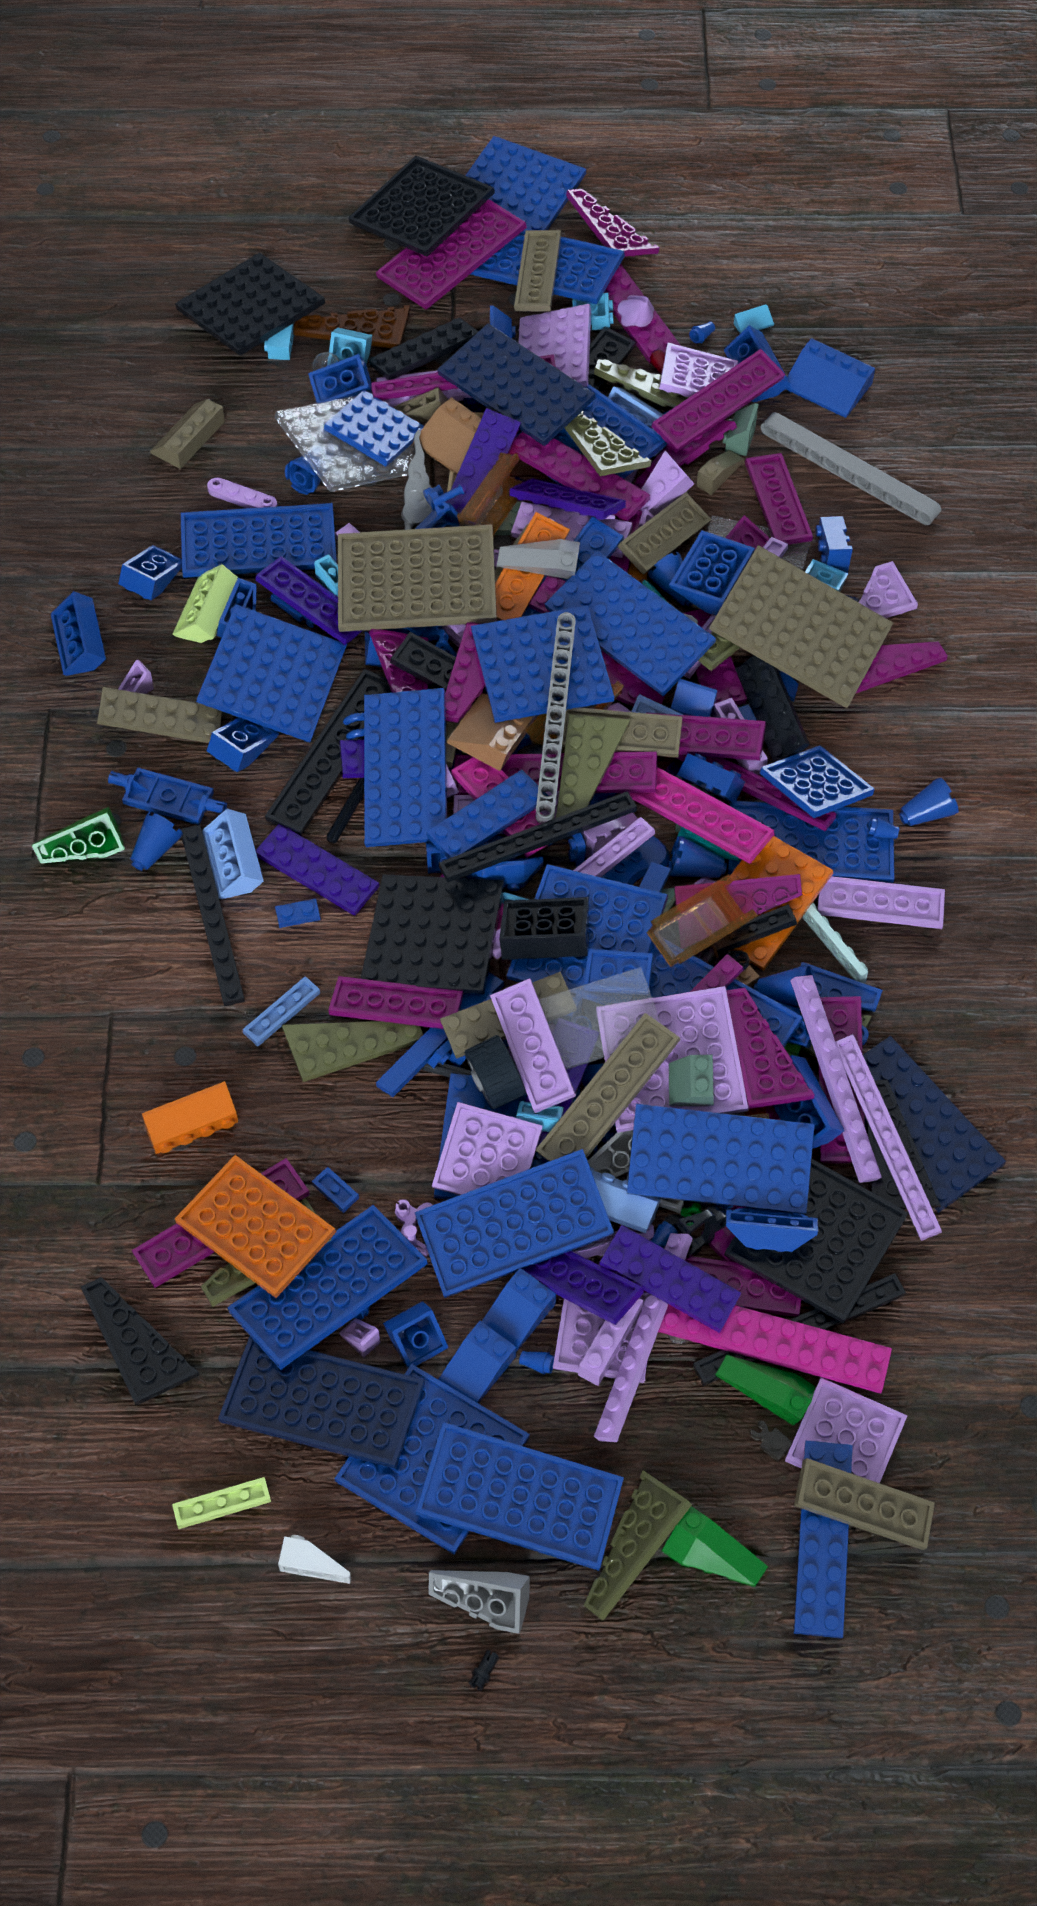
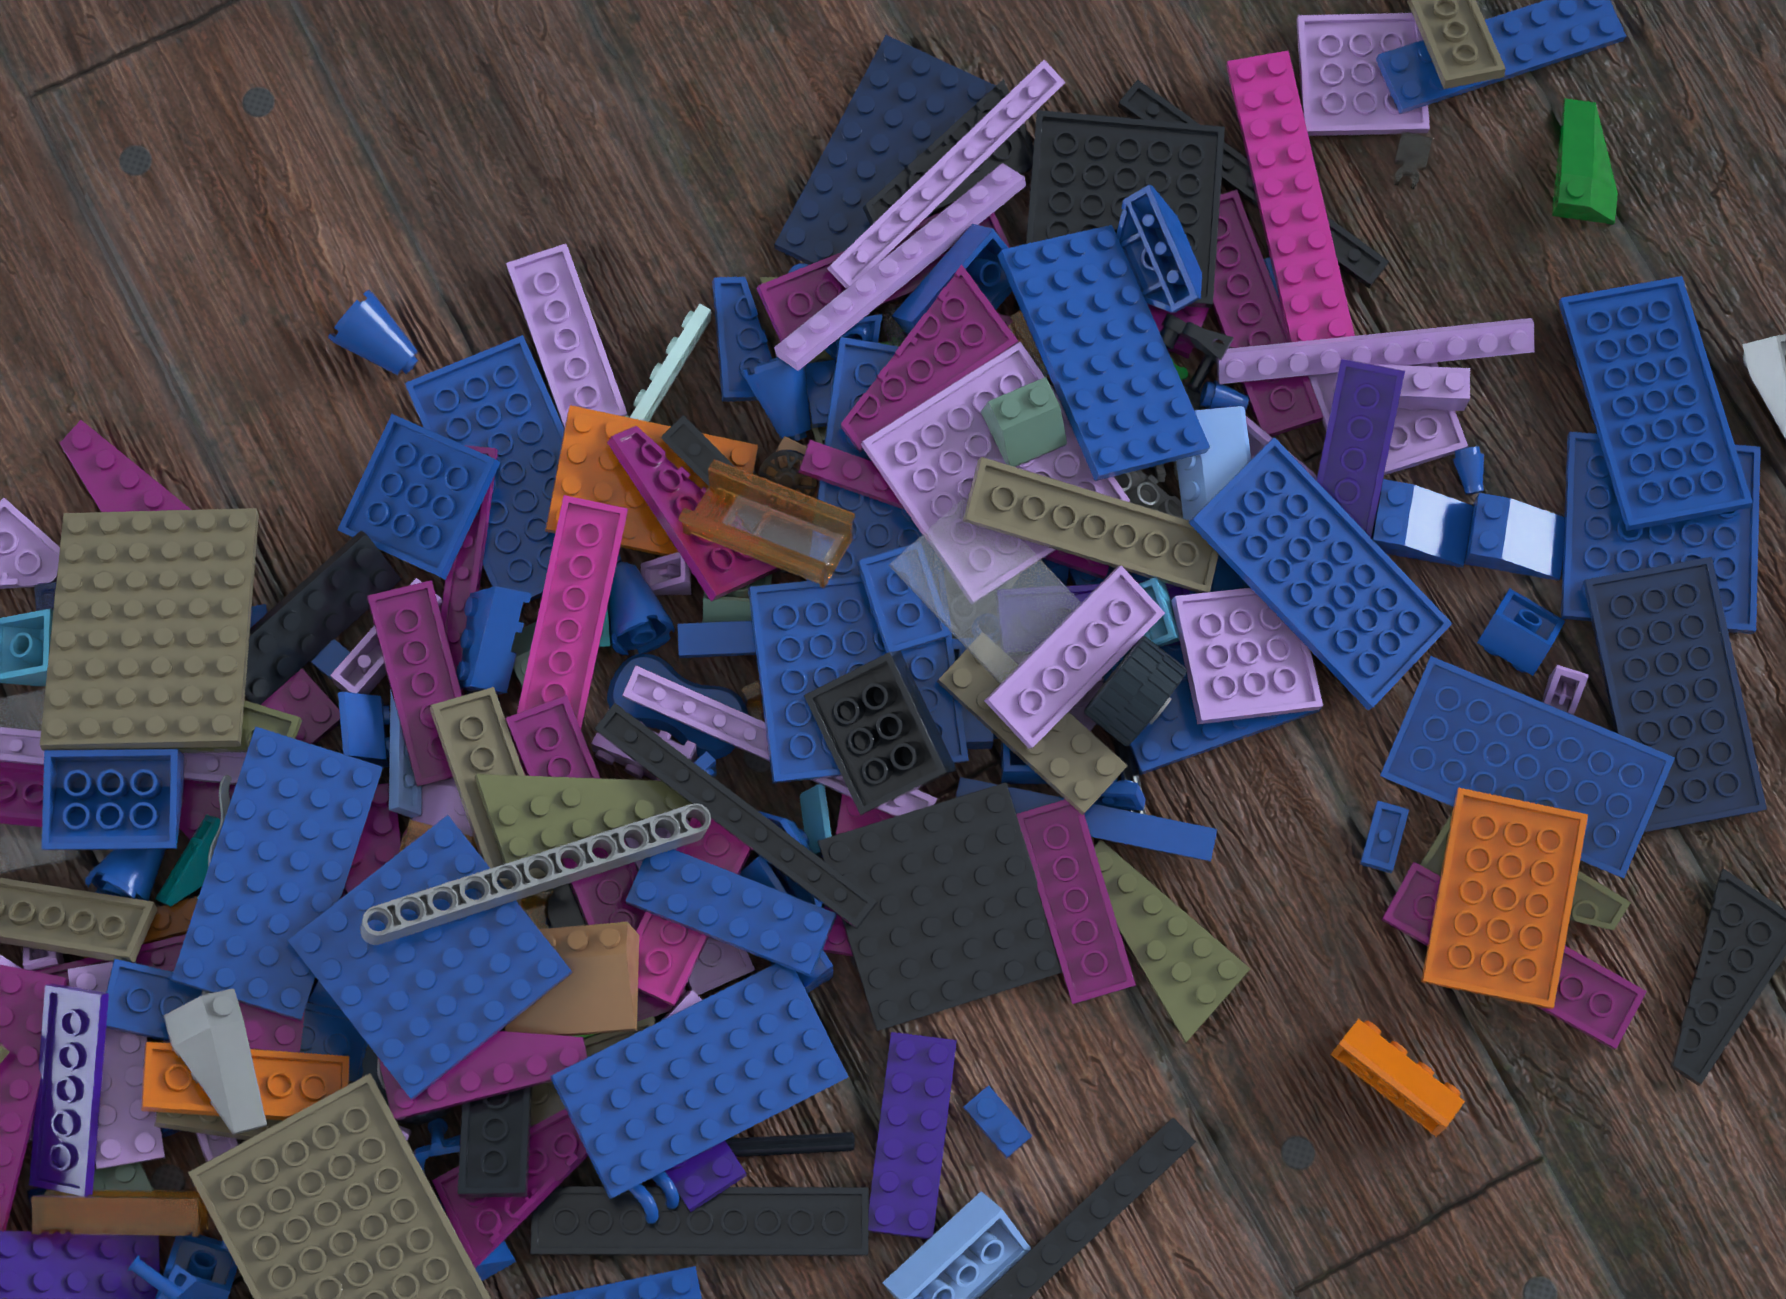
camera: 120 degrees left, 15 degrees up
(281, 1011) = (1166, 1053): medium blue plate -> none
(405, 1215) = (1370, 720): lavender piece -> none
(639, 1535) = (1619, 246): olive wing -> none
(670, 1278) = (1294, 346): dark purple plate -> none
(773, 1388) = (1349, 173): green wedge -> none
(882, 829) = (454, 380): blue cone -> none

